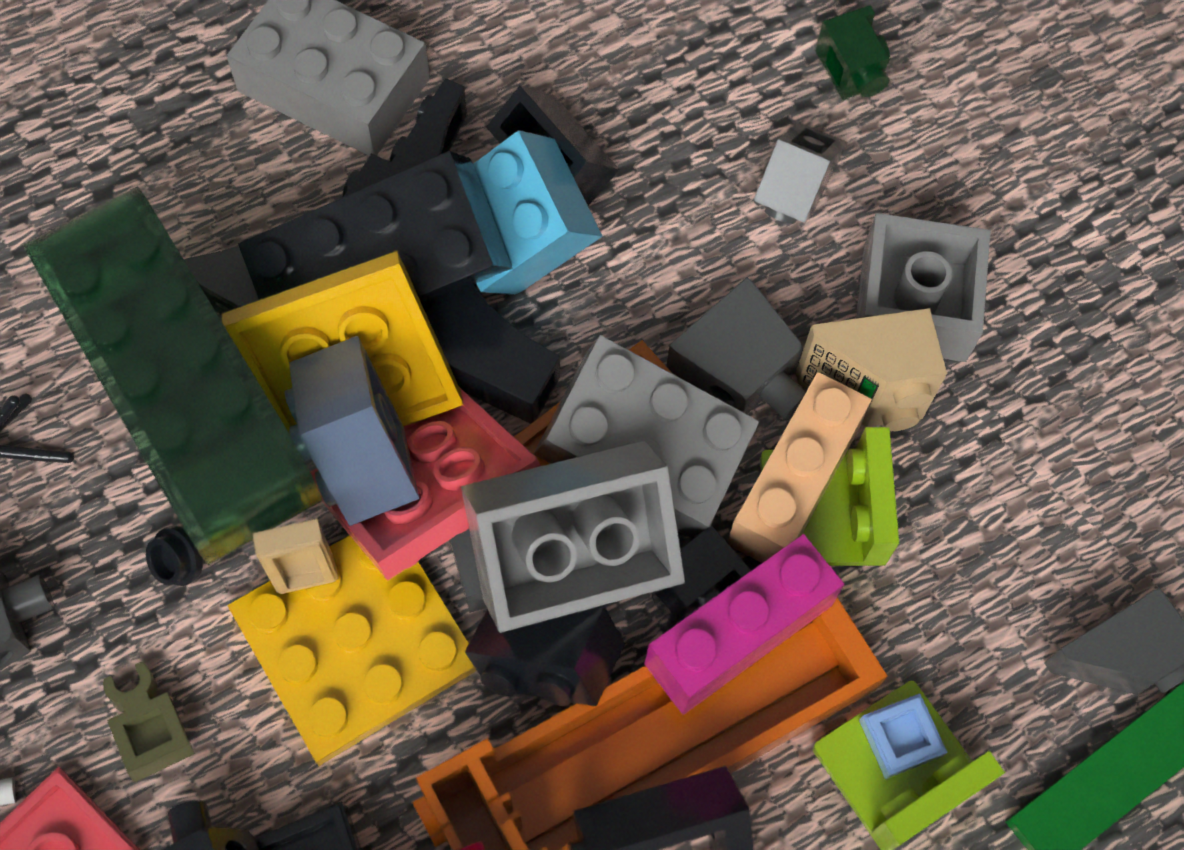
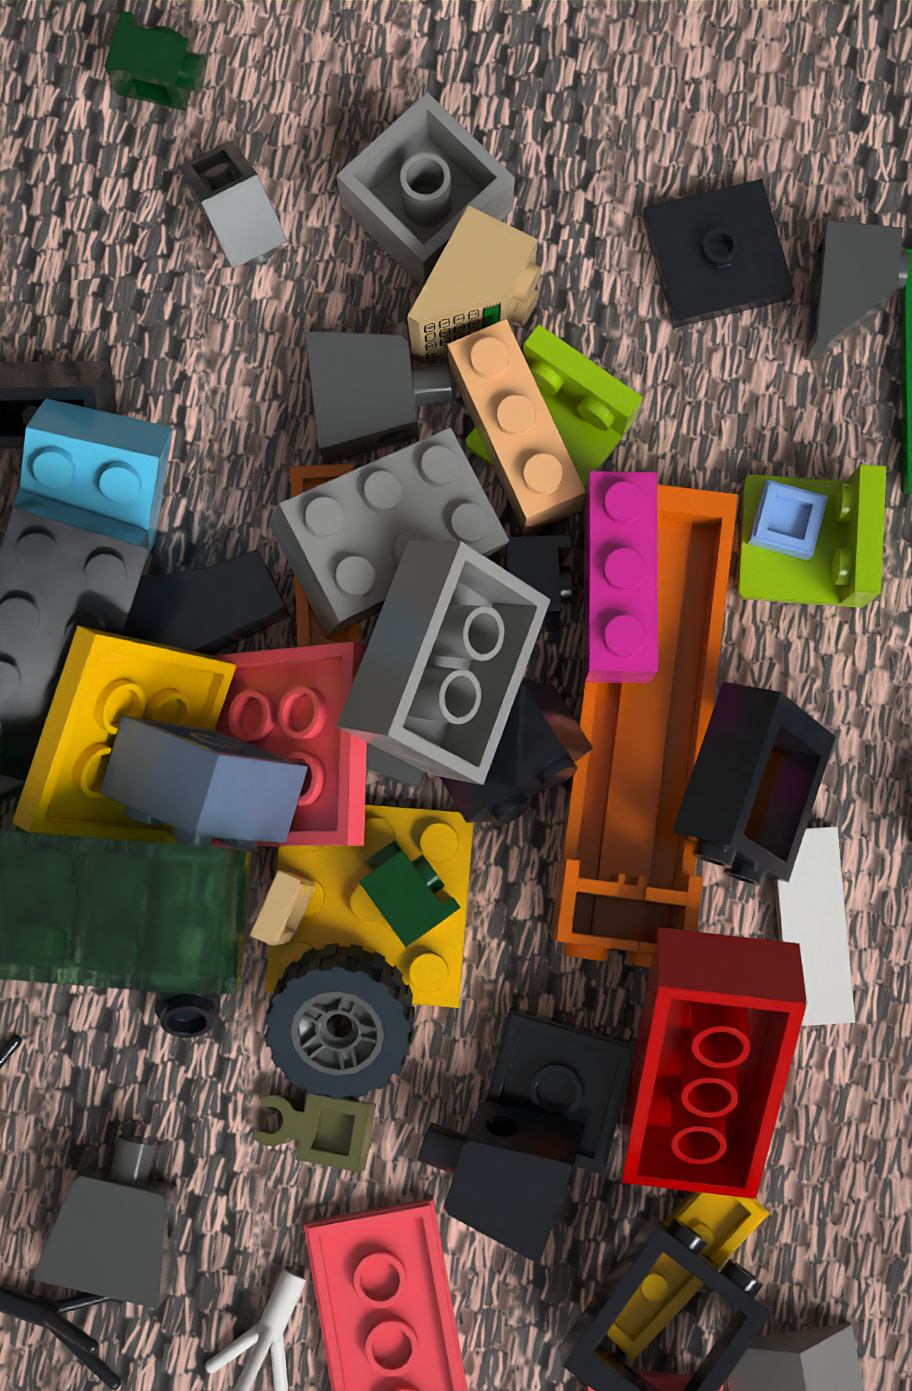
camera: 45 degrees left, 15 degrees up
(209, 665) = (308, 1035): none -> black wheel
(375, 648) = (406, 892): none -> dark green brick
(1065, 534) = (718, 253): none -> black plate

